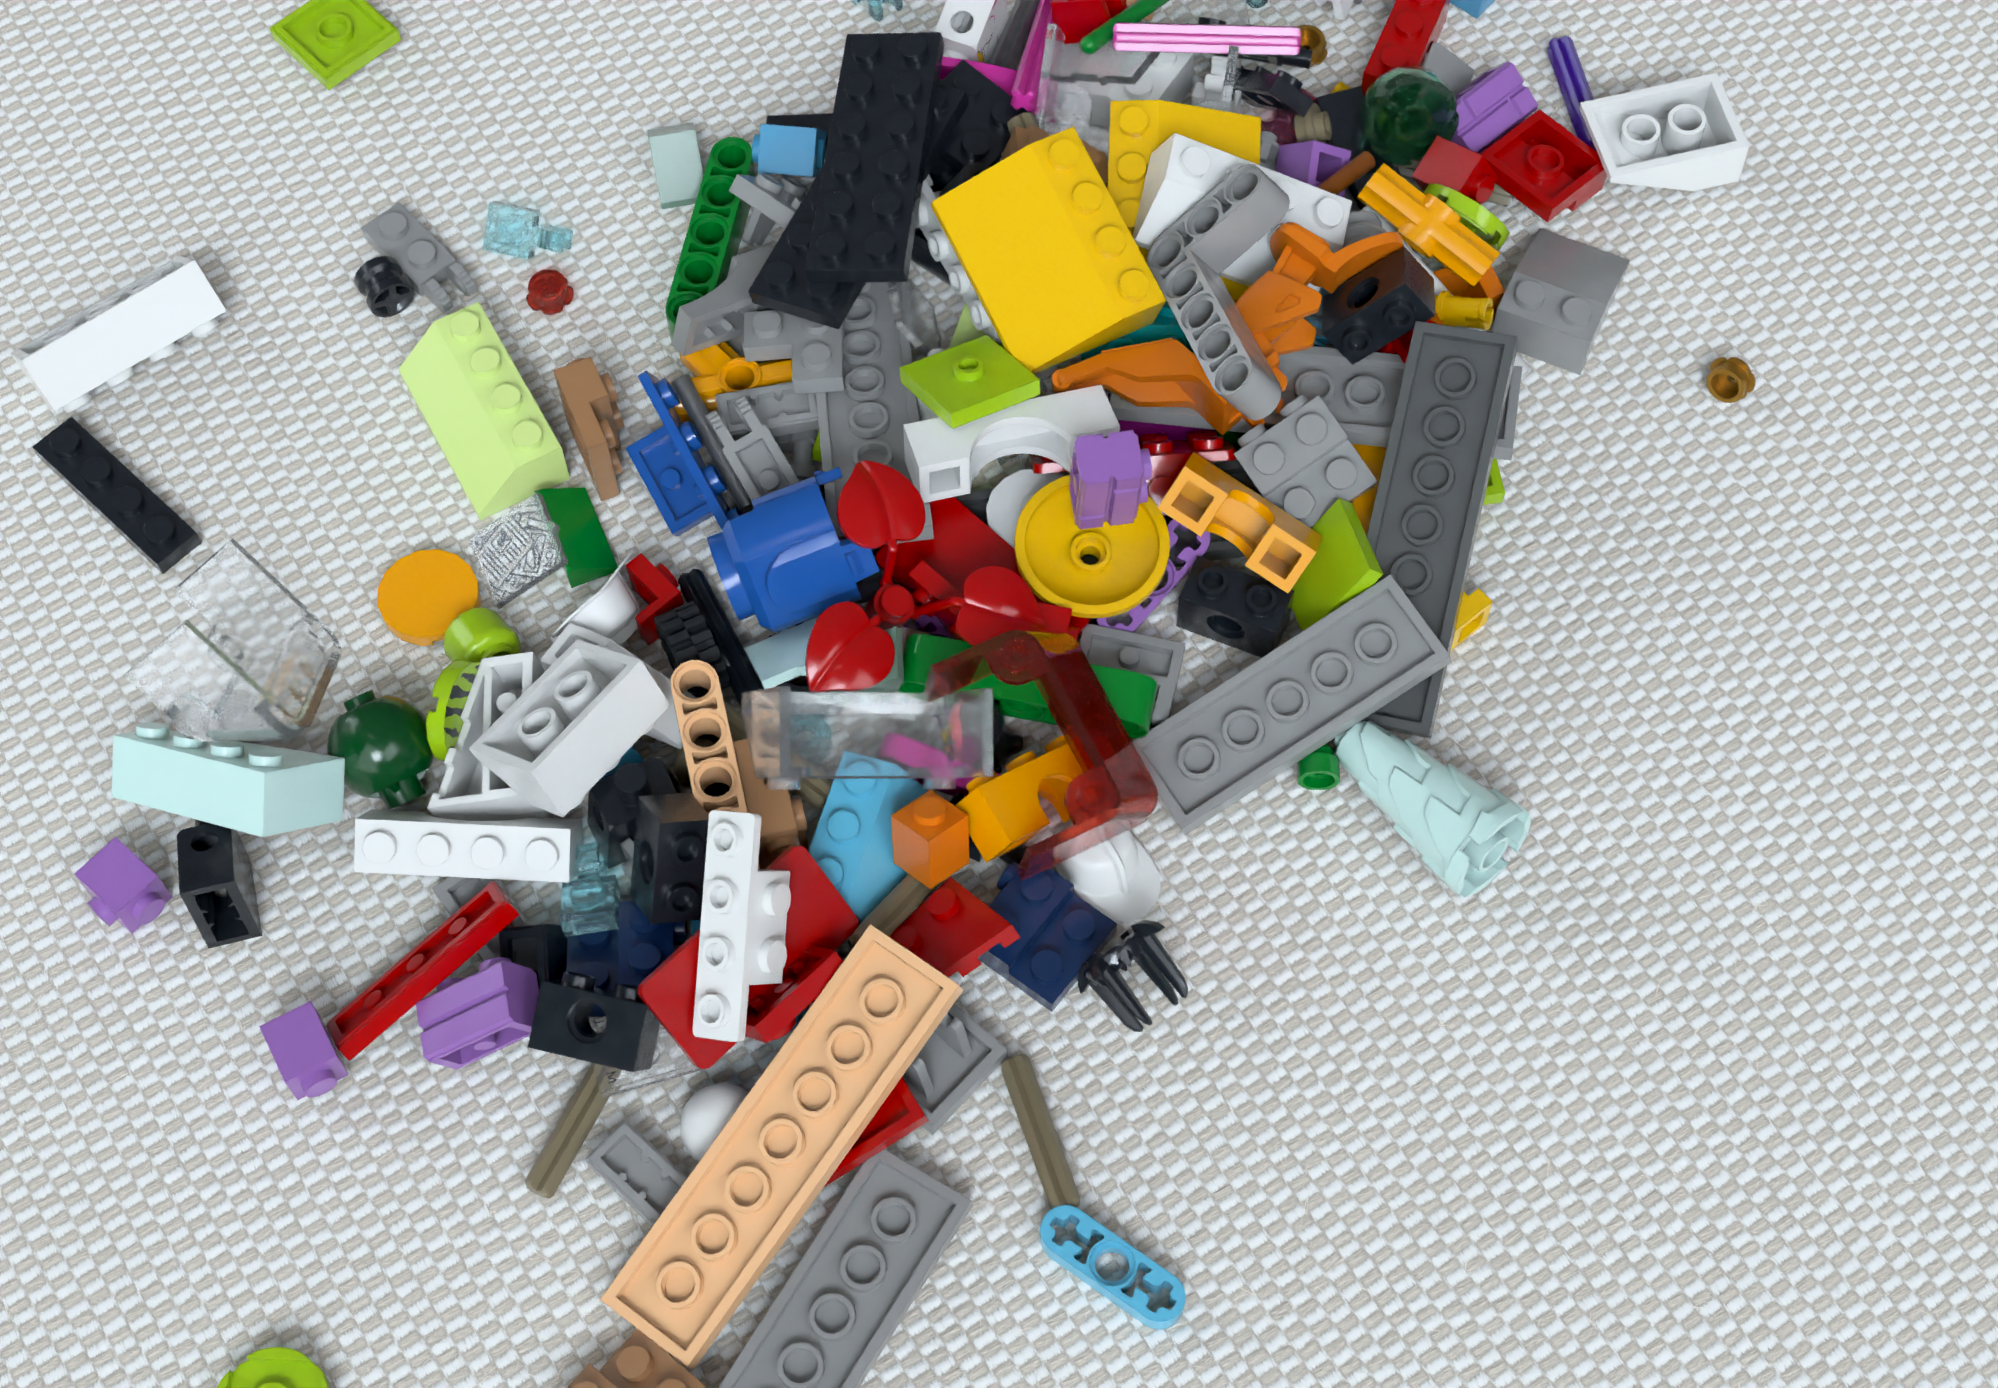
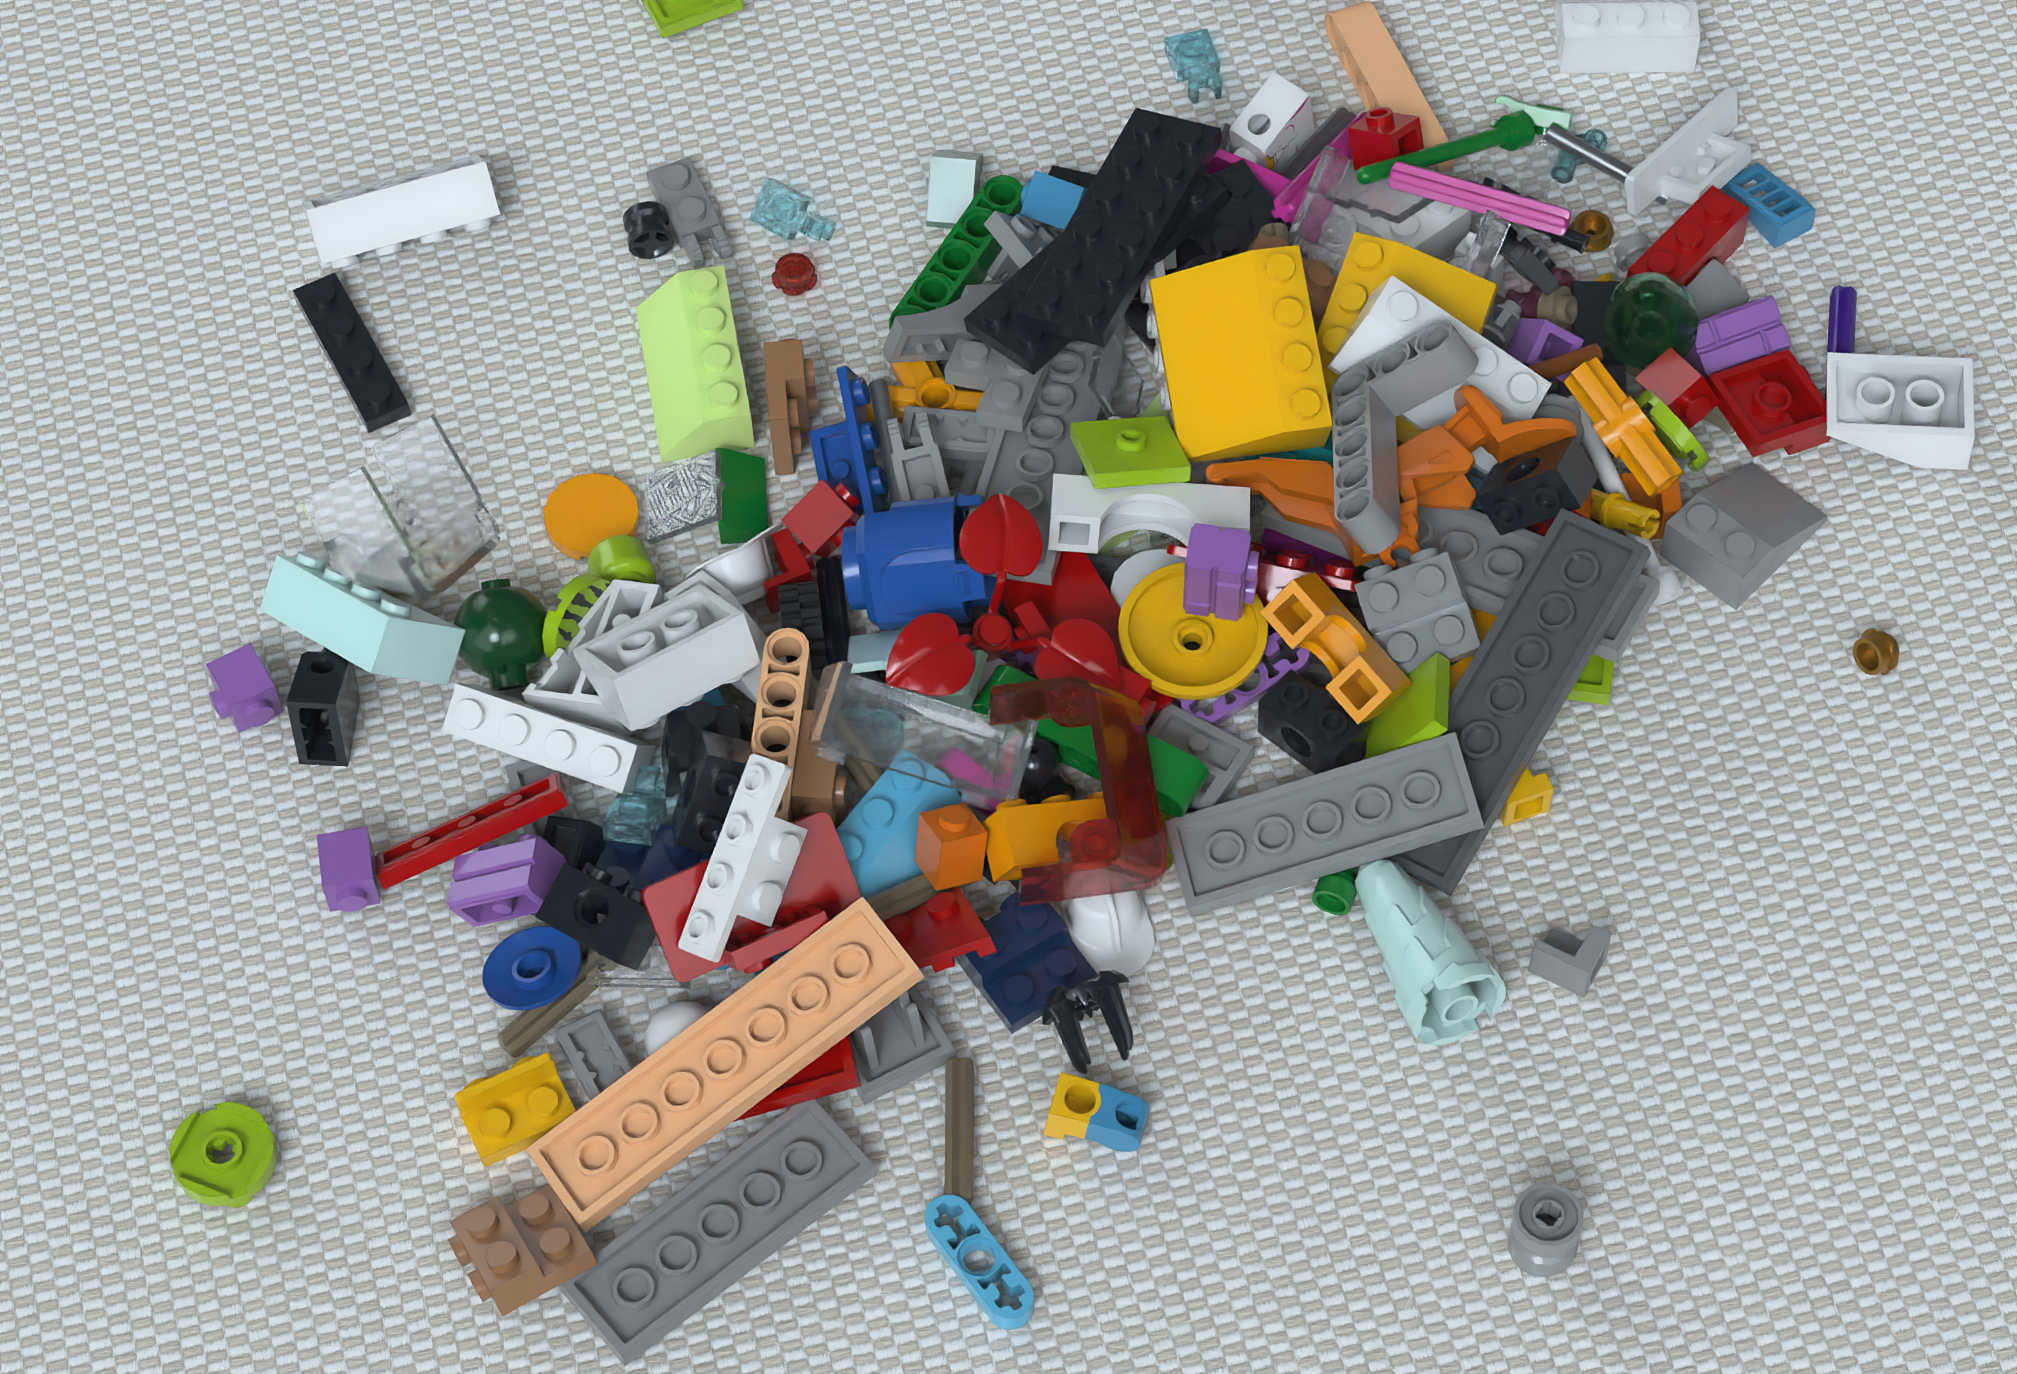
camera: 20 degrees right, 5 degrees down
(522, 1089) = (532, 968): none -> blue dish
(572, 1256) = (513, 1107): none -> yellow bracket
(674, 532) = (822, 516): none -> red brick
(1172, 1072) = (1096, 1114): none -> leg
(1354, 56) = (1631, 249): none -> light grey plate
(1569, 769) = (1569, 960): none -> light grey panel
(1661, 1054) = (1545, 1229): none -> light grey wheel

